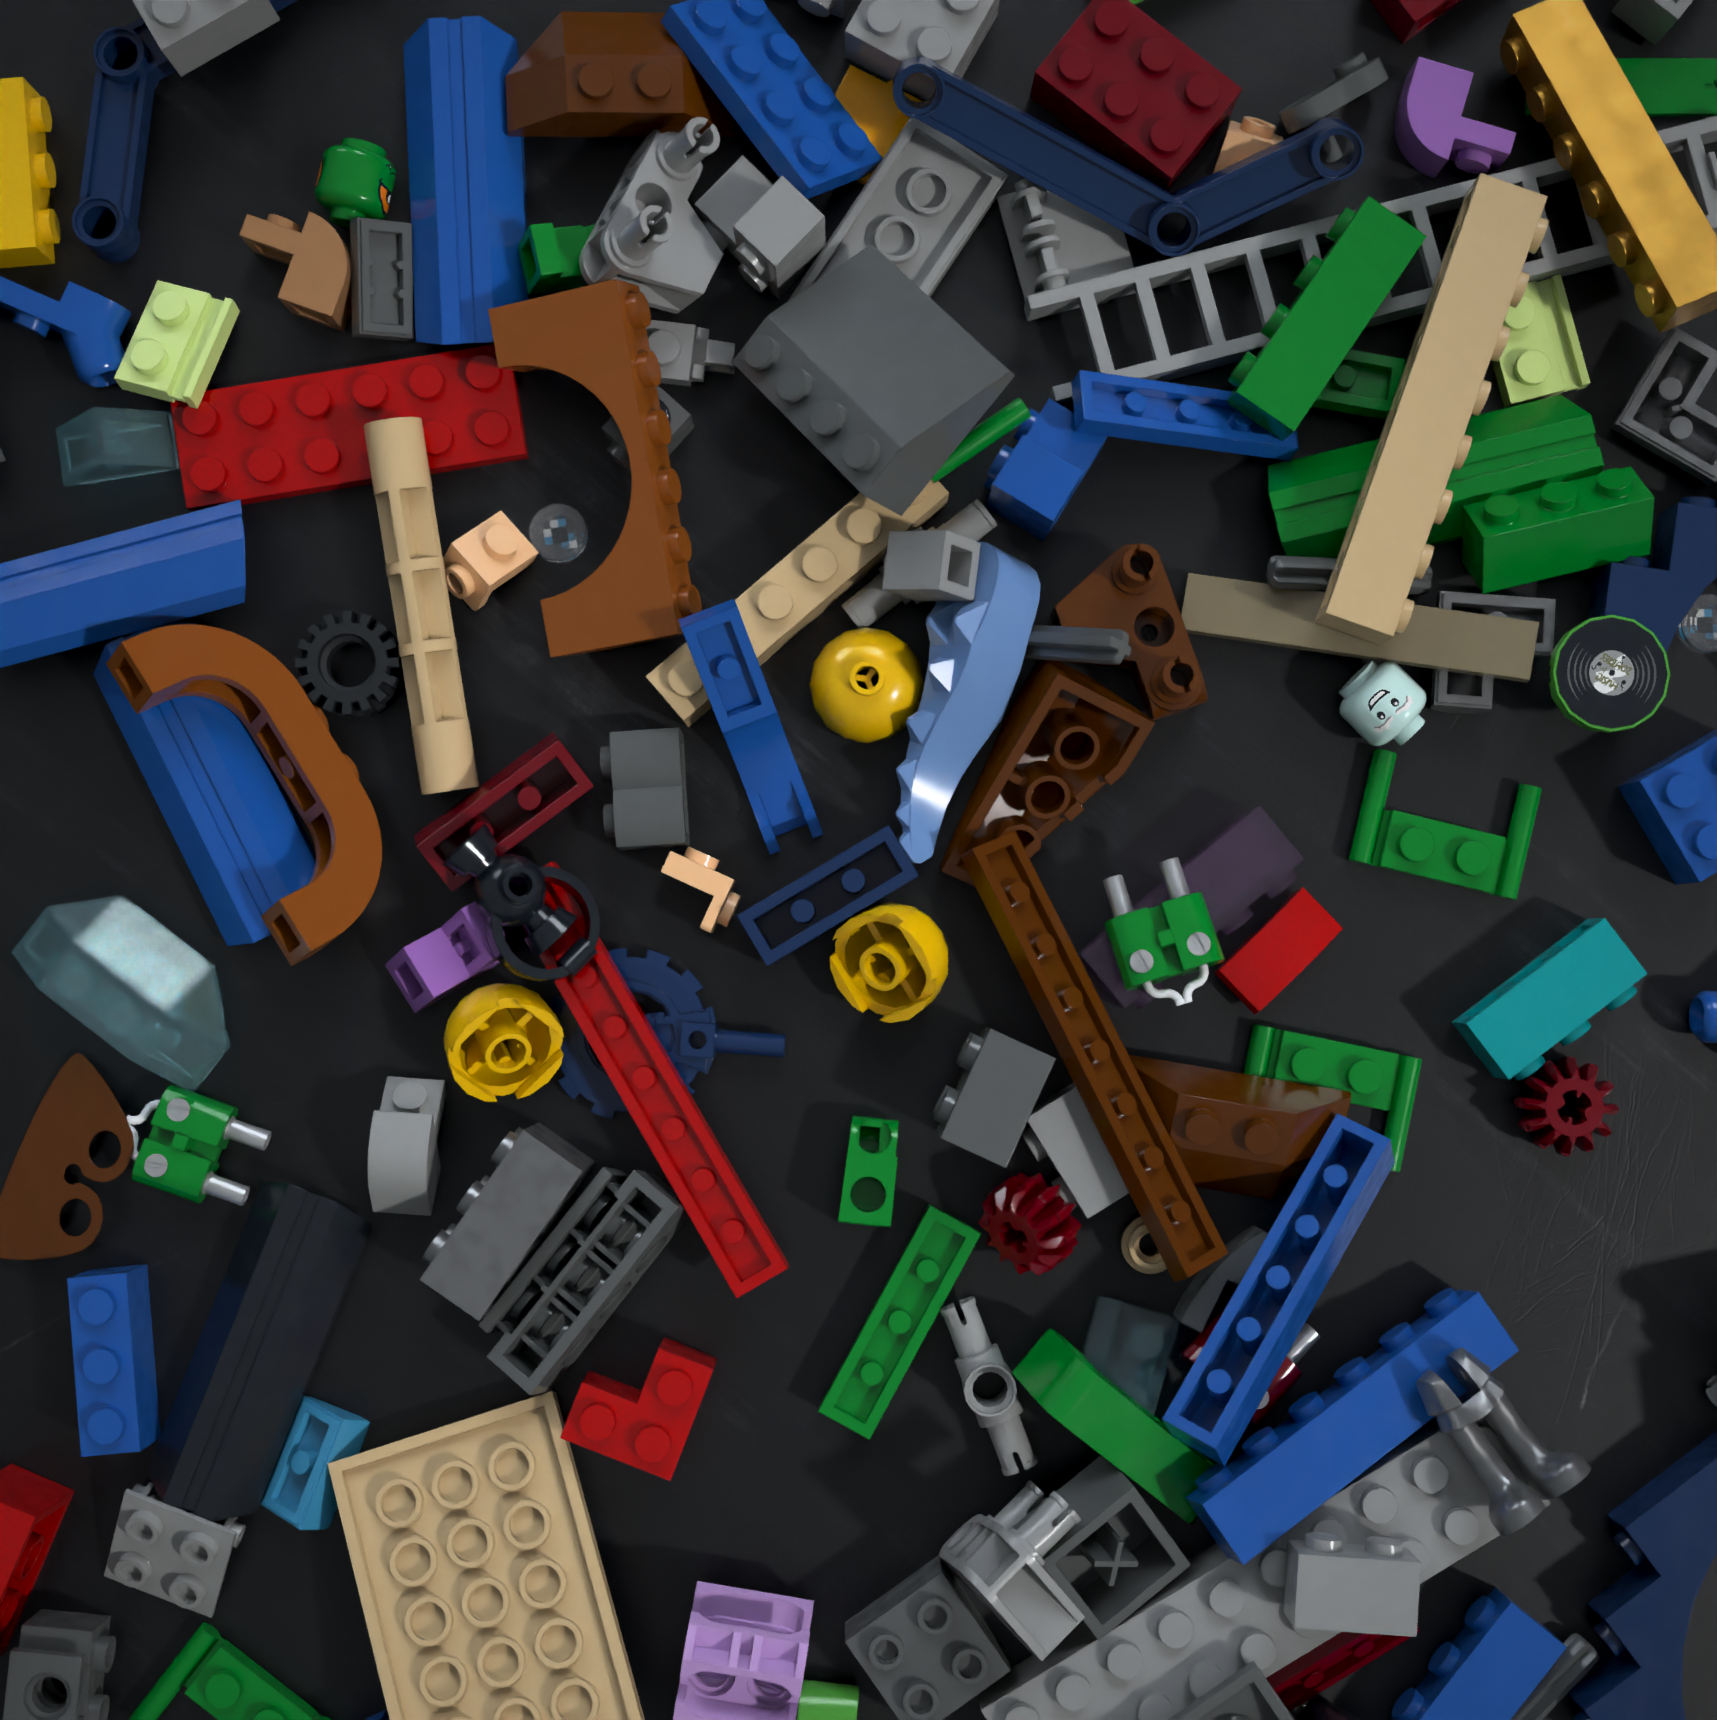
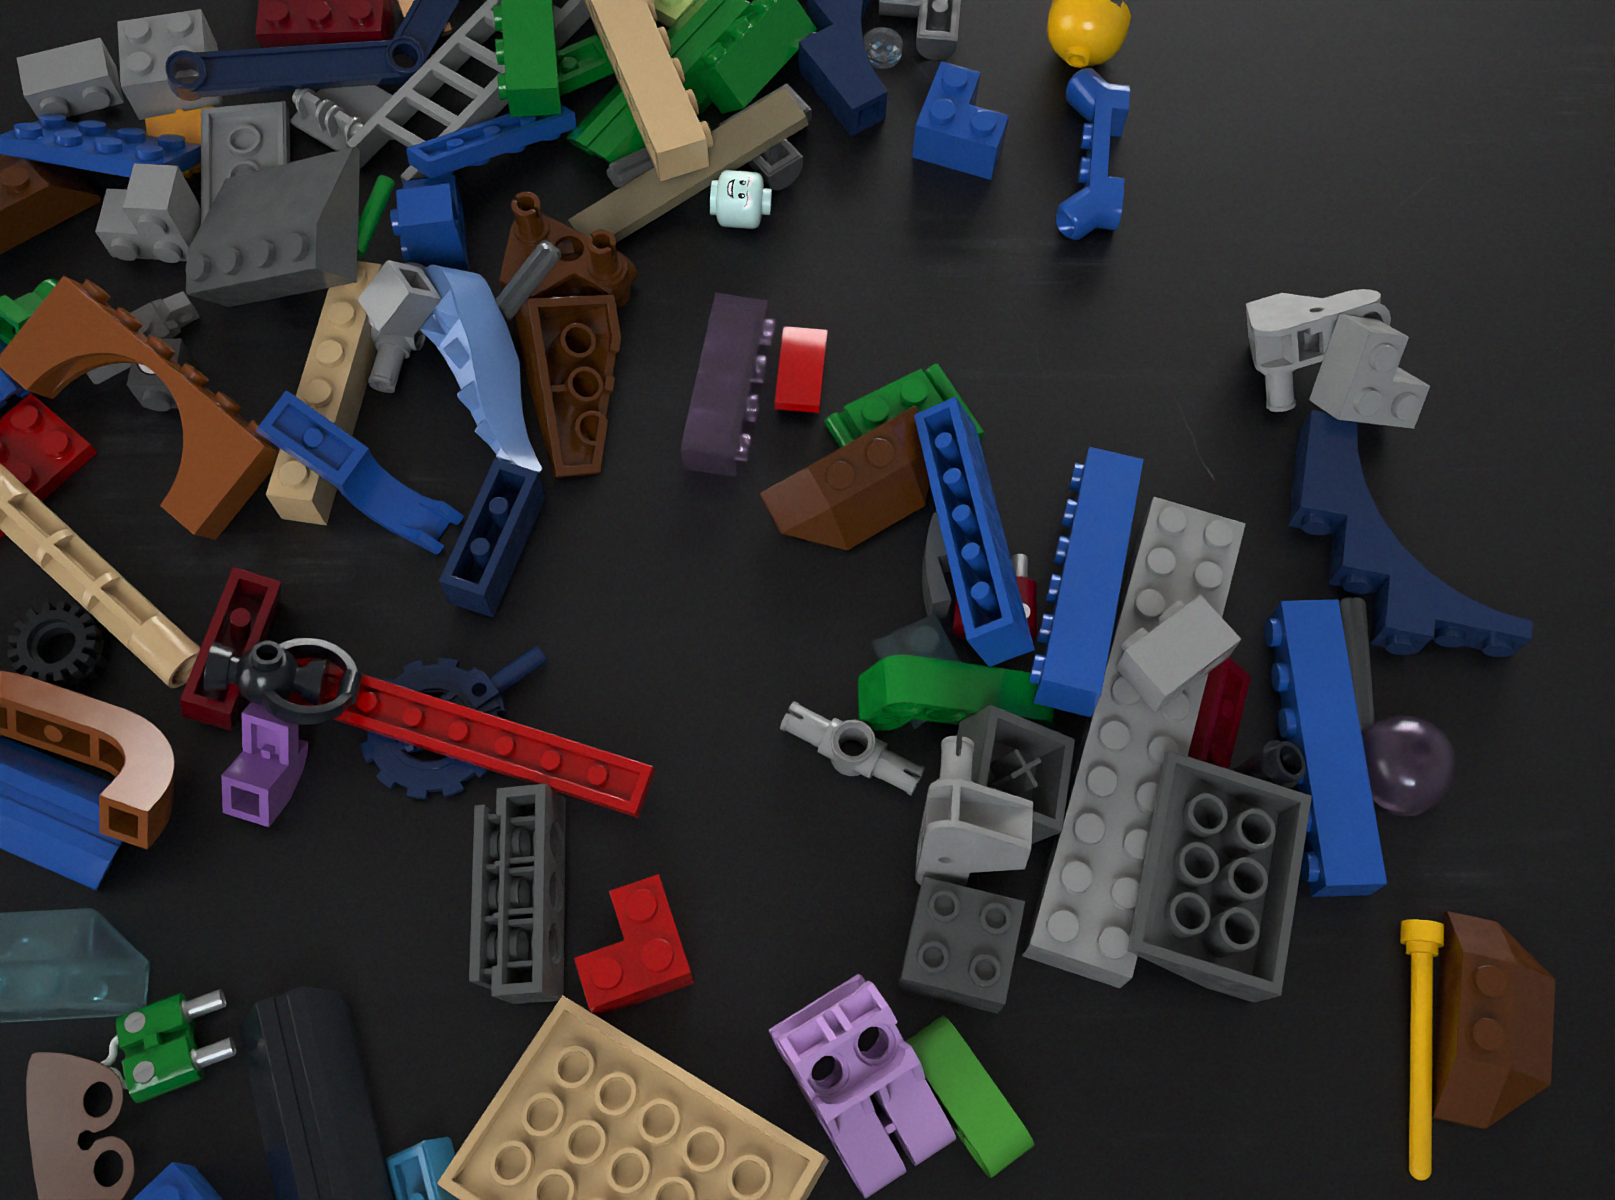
camera: 40 degrees left, 20 degrees down
(404, 1146) = (328, 916): light grey brick -> none
(486, 559) = (107, 519): light nougat bracket -> none
(503, 1042) = (343, 786): yellow cylinder -> none
(504, 1218) = (430, 893): flat silver brick -> none
(559, 533) = (149, 476): clear tile -> none
(647, 789) = (325, 570): dark grey brick -> none
(649, 227) = (75, 252): light grey piece -> none
(699, 872) = (406, 593): light nougat bracket -> none
(870, 1172) = (664, 685): green leg -> none
(871, 712) = (420, 413): yellow cylinder -> none
(890, 960) = (563, 541): yellow cylinder -> none
(899, 1321) = (761, 759): green plate -> none
(992, 1095) = (695, 564): dark grey brick -> none
(1029, 1223) = (787, 642): dark red gear -> none
(1069, 1138) = (783, 562): light grey brick -> none
(1094, 1056) = (740, 491): reddish brown plate -> none
(1130, 1249) = (880, 576): tan plate -> none
(1164, 938) = (721, 393): green piece -> none
(1438, 848) = (841, 252): green plate -> none
(1547, 1471) = (1133, 497): flat silver piece -> none
(1551, 1000) = (979, 277): teal brick -> none
(1584, 1113) = (1041, 322): dark red gear -> none
(1608, 674) = (847, 87): black tile -> none

